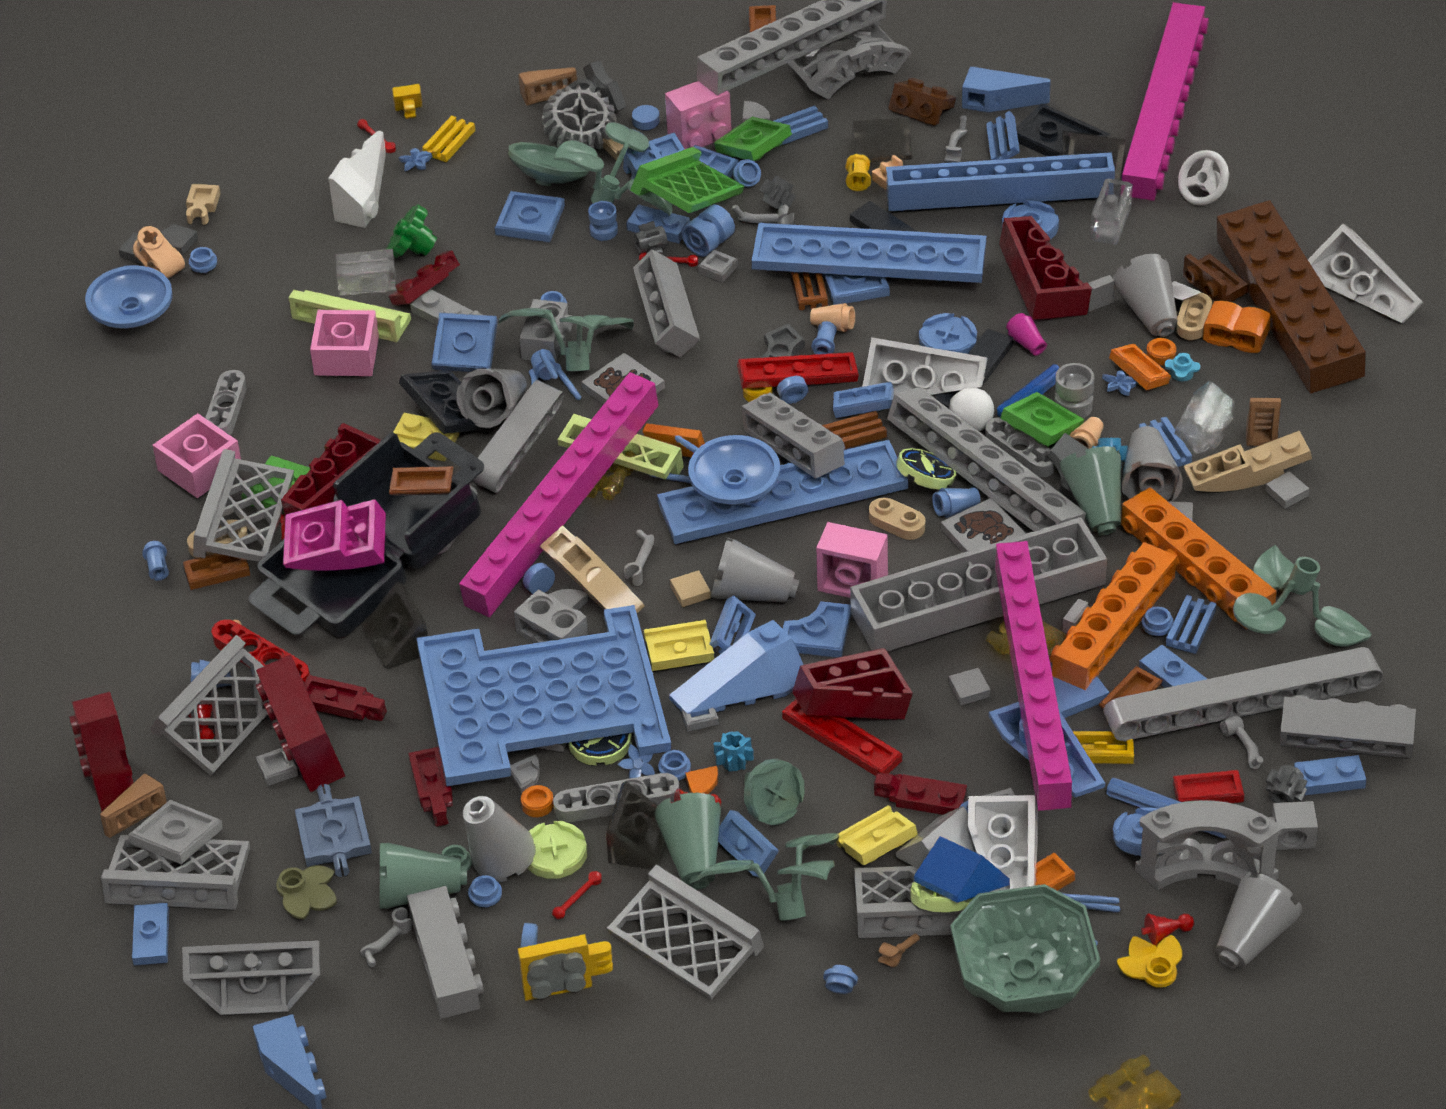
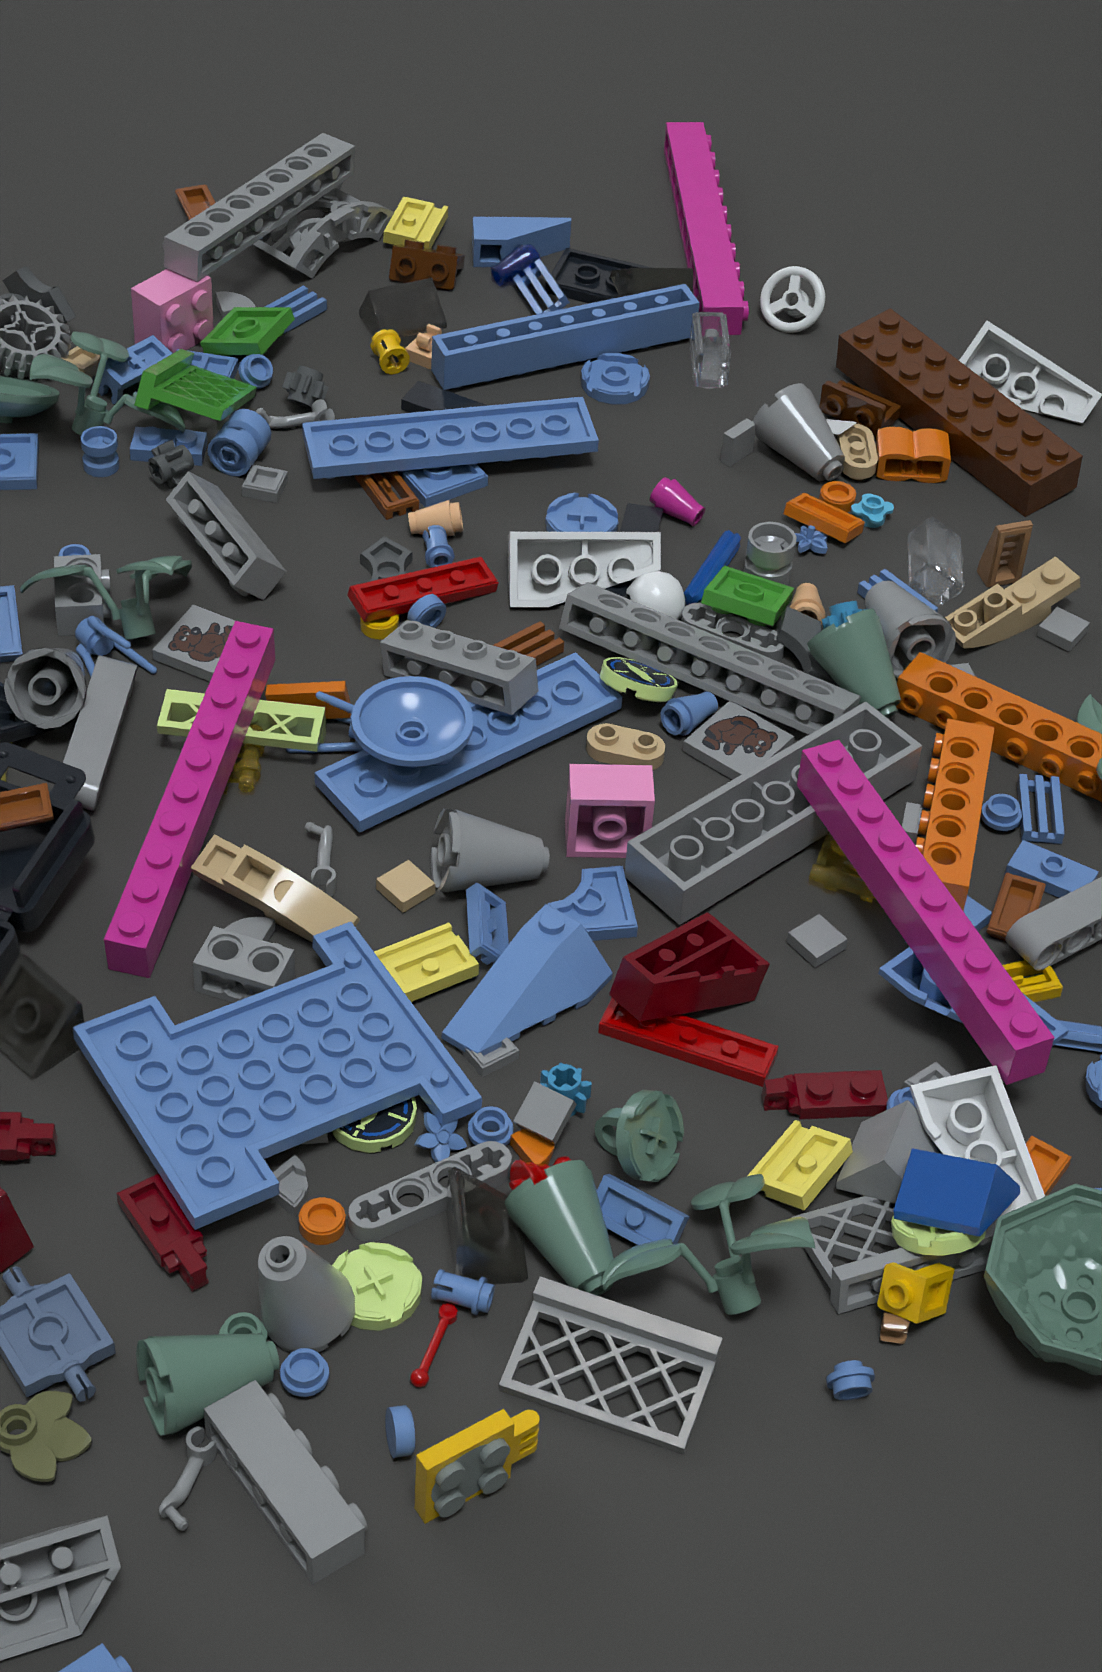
camera: 25 degrees left, 0 degrees up
(538, 577) = (201, 912): medium blue tile -> none
(614, 868) = (464, 1291): none -> medium blue pin
(645, 117) = (101, 325): medium blue tile -> none
(691, 260) = (229, 483): red hinge -> none
(710, 761) = (545, 1112): none -> light grey tile
(863, 399) = (520, 610): medium blue plate -> none
(911, 934) = (915, 1293): none -> yellow bracket
(928, 63) = (415, 221): none -> light yellow plate
(953, 153) = (488, 314): light grey piece -> none
(991, 111) = (515, 264): none -> clear blue cone
(1041, 273) = (662, 427): dark red wedge -> none

